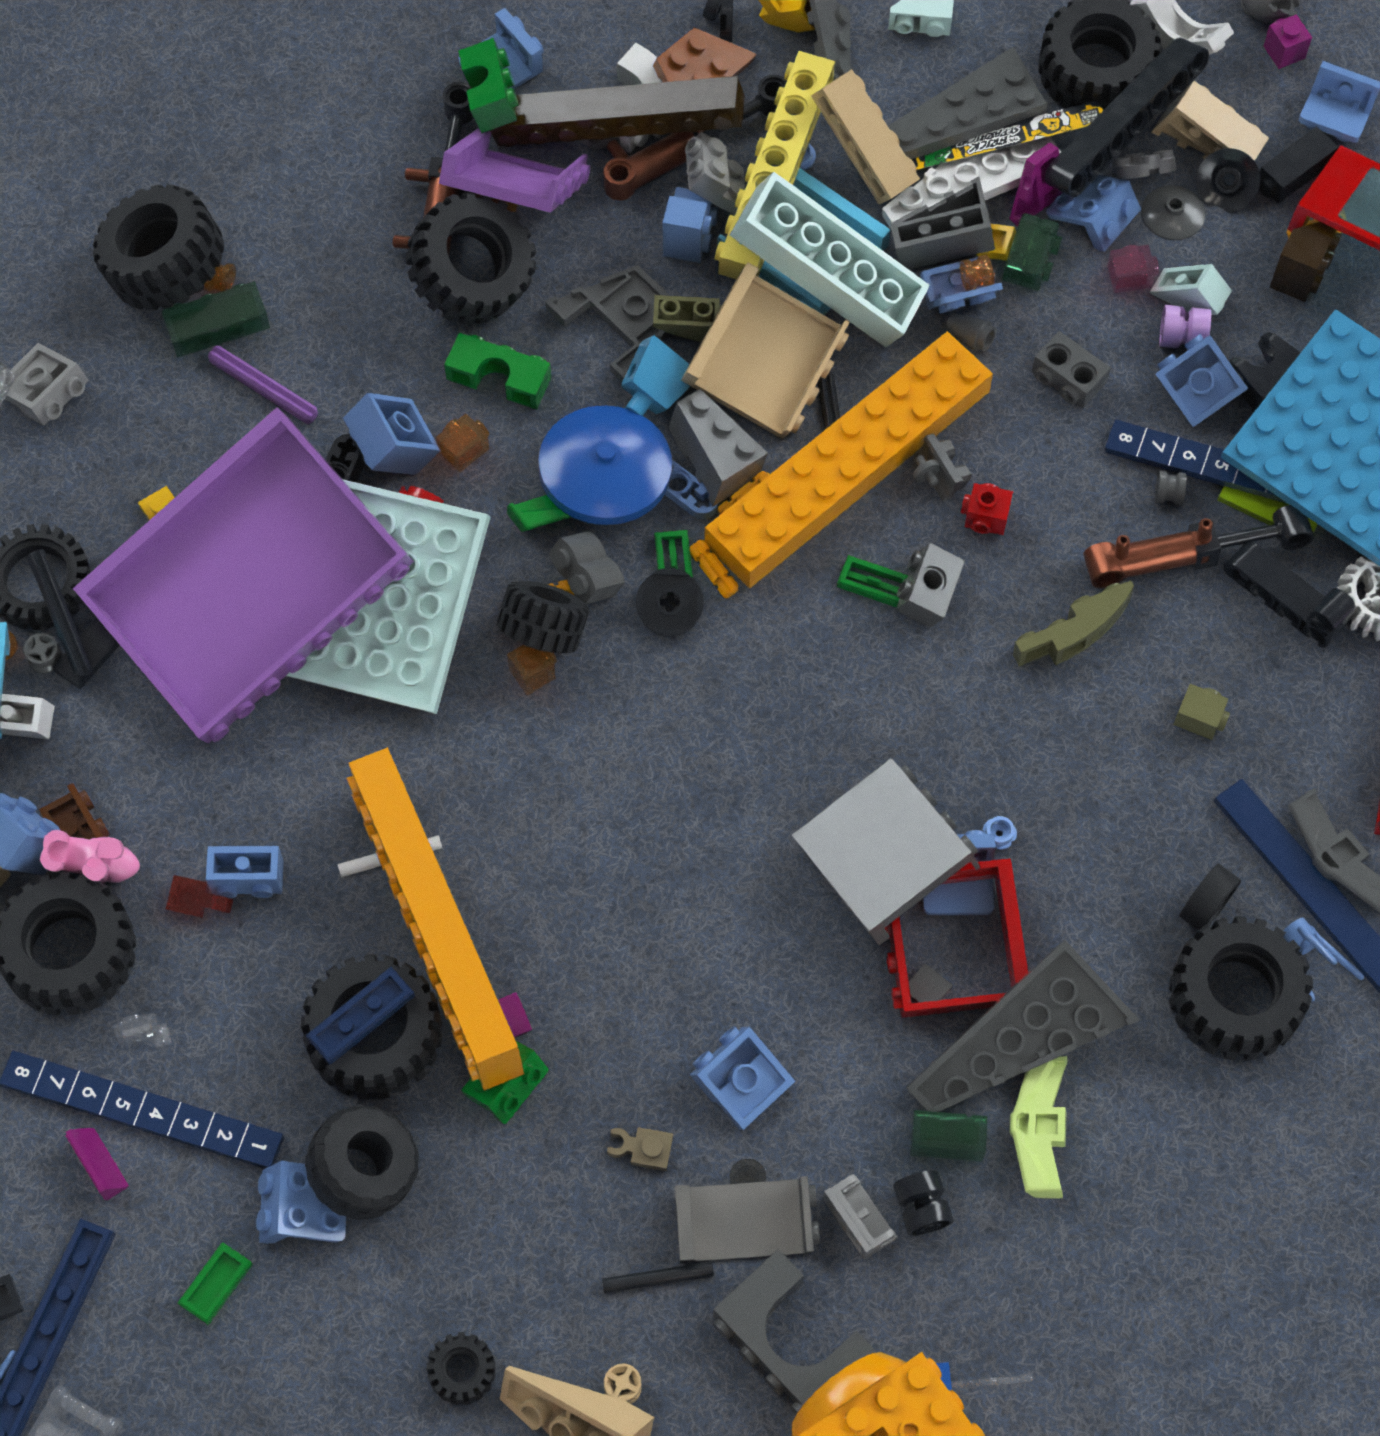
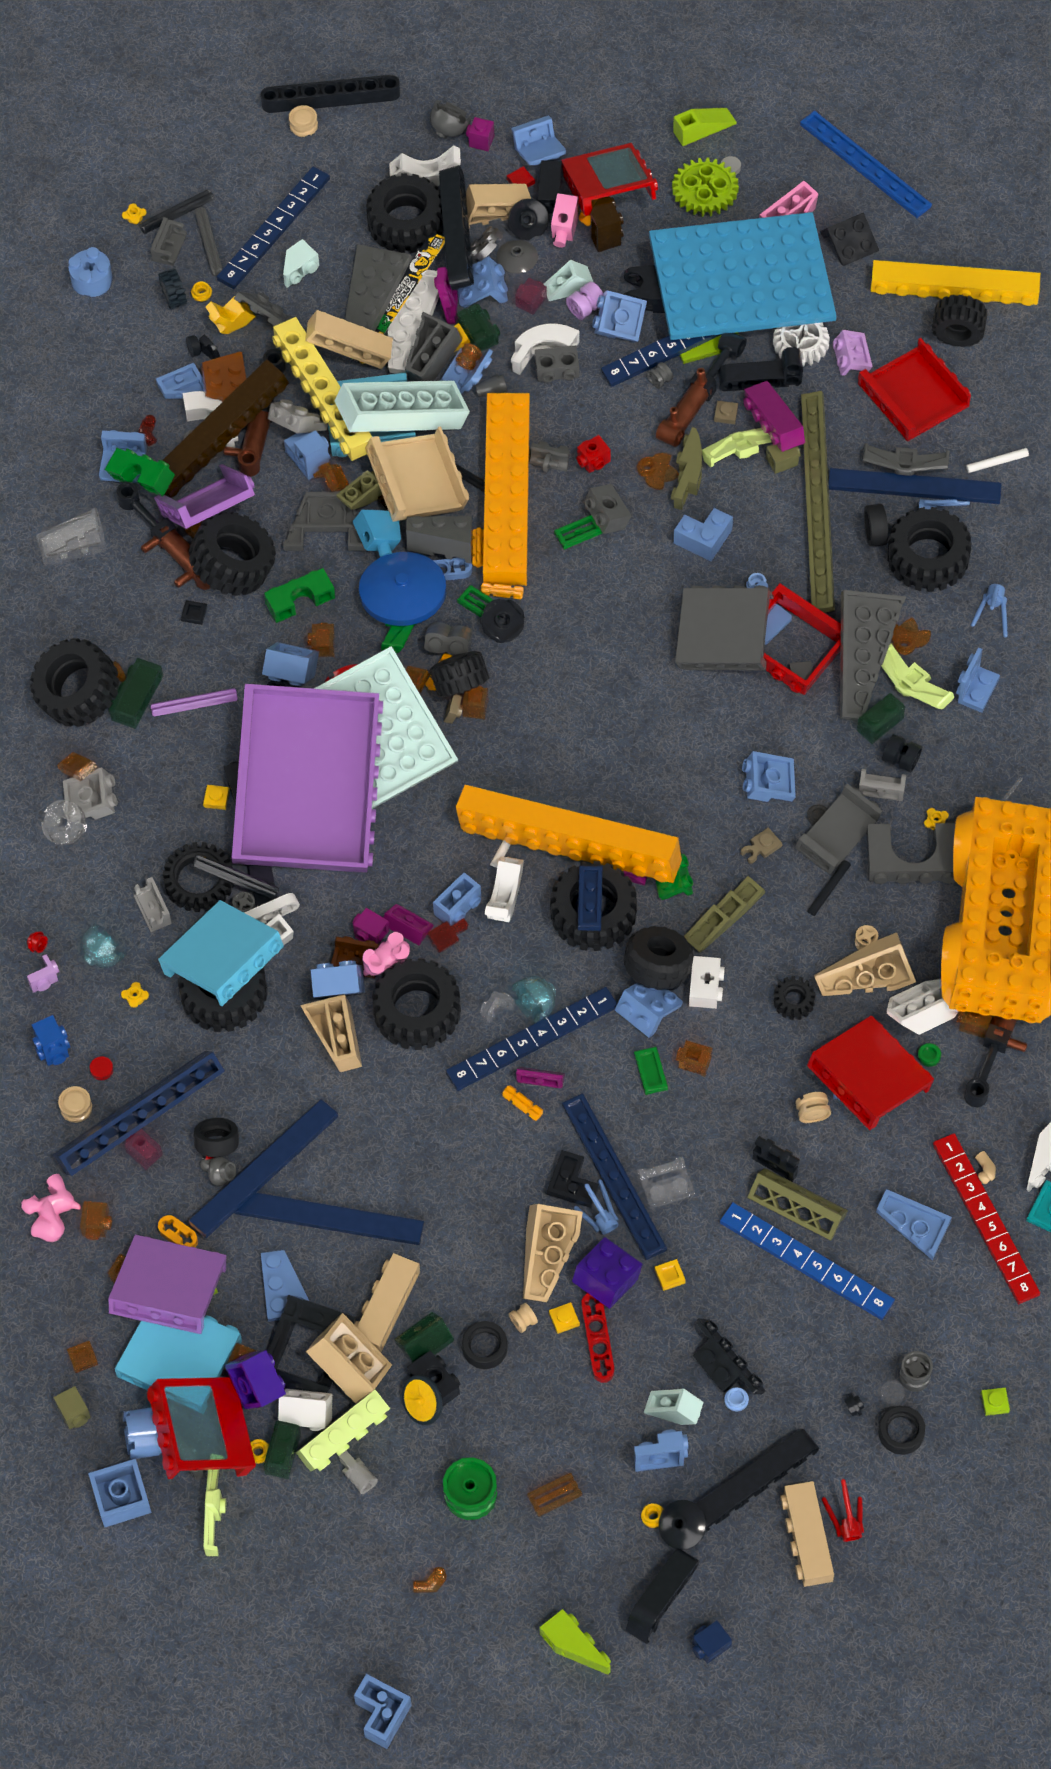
camera: 45 degrees left, 5 degrees down
(43, 1173) = (522, 1102): none -> light orange axle
(48, 681) = (269, 910): none -> white beam
(65, 340) = (77, 766): none -> clear orange tile
(129, 808) = (370, 926): none -> magenta brick
(176, 842) = (408, 924): none -> magenta slope
(191, 1068) = (535, 997): none -> clear light blue cylinder
(278, 1335) = (701, 1053): none -> clear orange brick
(305, 915) = (505, 889): none -> white arch
(349, 98) = (72, 539): none -> clear wedge
(378, 288) = (194, 612): none -> black tile
(399, 1227) = (706, 994): none -> white brick
(499, 651) = (453, 709): none -> dark tan plate
(501, 574) = (418, 677): none -> clear orange plate
(505, 1185) = (725, 914): none -> olive slope
(565, 50) = (147, 427): none -> clear red arm
(654, 29) = (180, 381): none -> medium blue wing
(685, 273) = (334, 476): none -> clear orange bracket
(876, 1314) = (932, 814): none -> yellow plate
(1003, 725) = (706, 537): none -> medium blue brick
(1045, 599) = (659, 472): none -> clear orange plate
(1084, 325) = (541, 337): none -> white arch
(1106, 1069) = (909, 634): none -> clear orange plate
(1109, 1207) = (976, 683): none -> medium blue bracket
(1171, 653) = (742, 444): none -> yellowish green plate
(1177, 806) = (818, 502): none -> olive plate
(1199, 600) = (726, 412): none -> dark tan plate
(1239, 656) = (774, 416): none -> magenta brick
(1255, 1122) = (994, 598): none -> medium blue plant
(1264, 215) = (564, 219): none -> bright pink torso
(1278, 129) = (521, 176): none -> red tile

